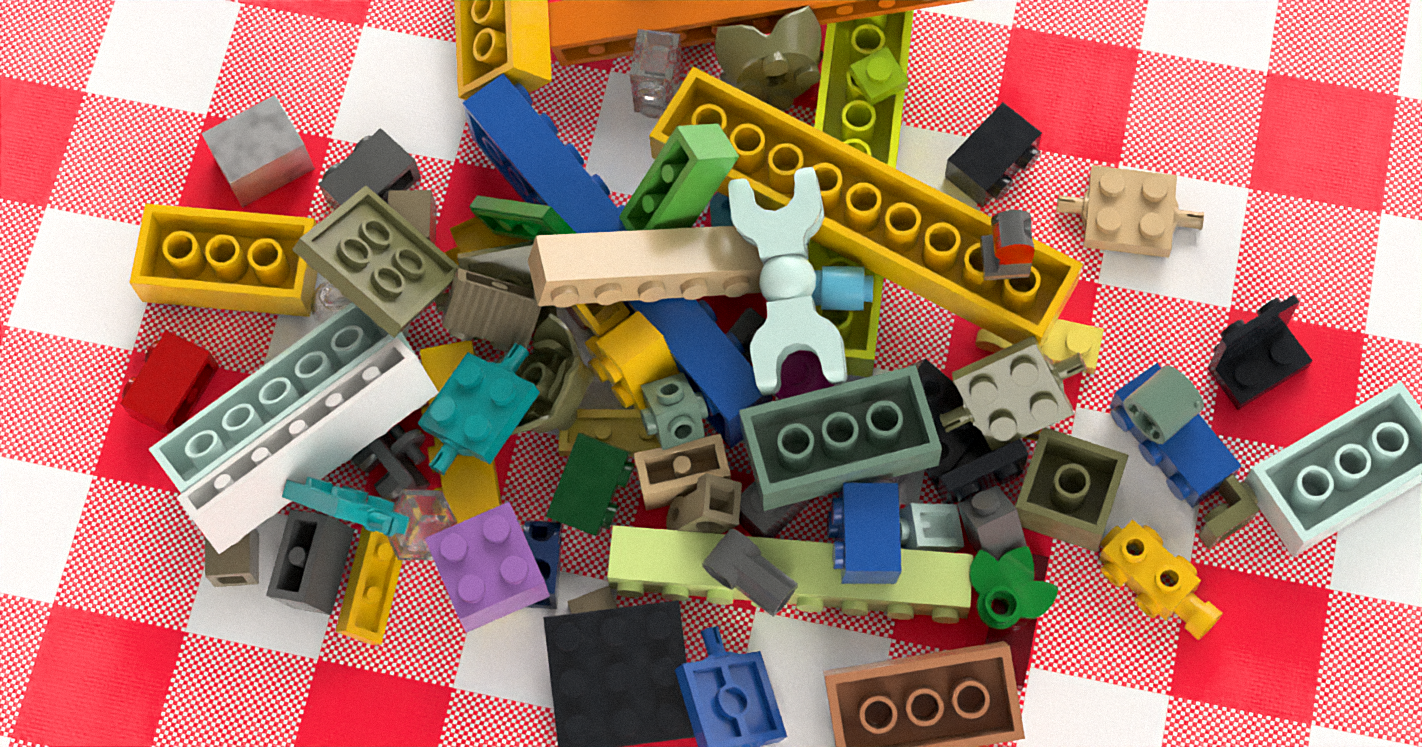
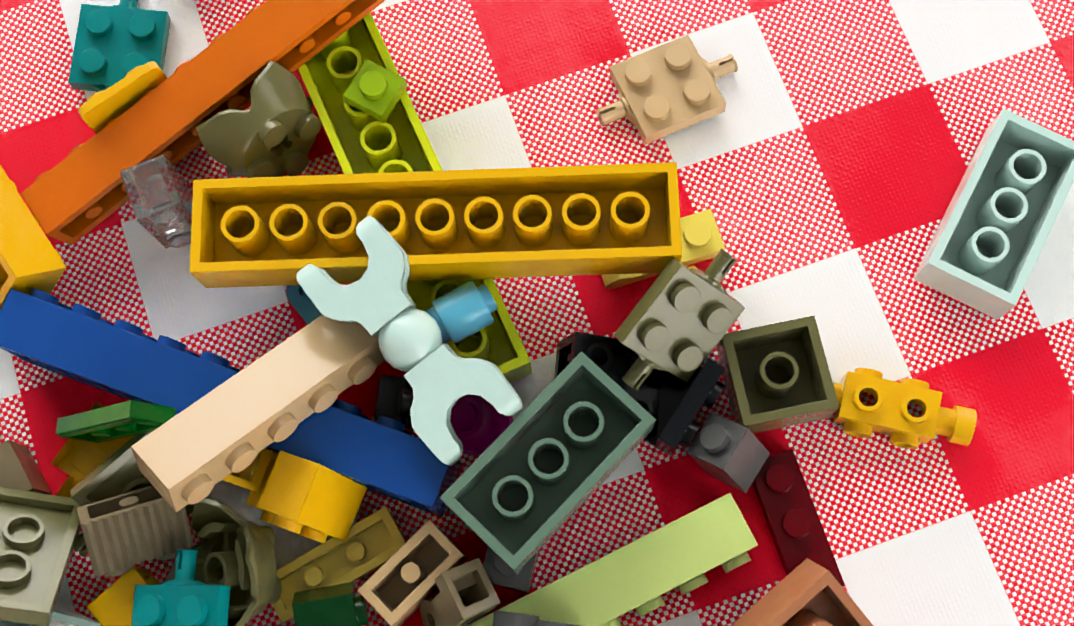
camera: 30 degrees left, 5 degrees up
(673, 411) = (378, 533): sand green brick -> none
(681, 179) = (246, 300): bright green brick -> none
(866, 533) = (628, 535): blue brick -> none
(931, 527) = (668, 490): light aqua bracket -> none
(994, 155) = (518, 106): black brick -> none
(1010, 247) = (605, 186): dark grey leg -> none
(1013, 584) = (780, 497): green plate -> none
(1163, 404) = (818, 250): sand green piece -> none
(1191, 459) = (833, 271): blue brick -> none
(1225, 521) = (926, 315): olive bracket -> none
(1258, 353) = (858, 155): black bracket -> none

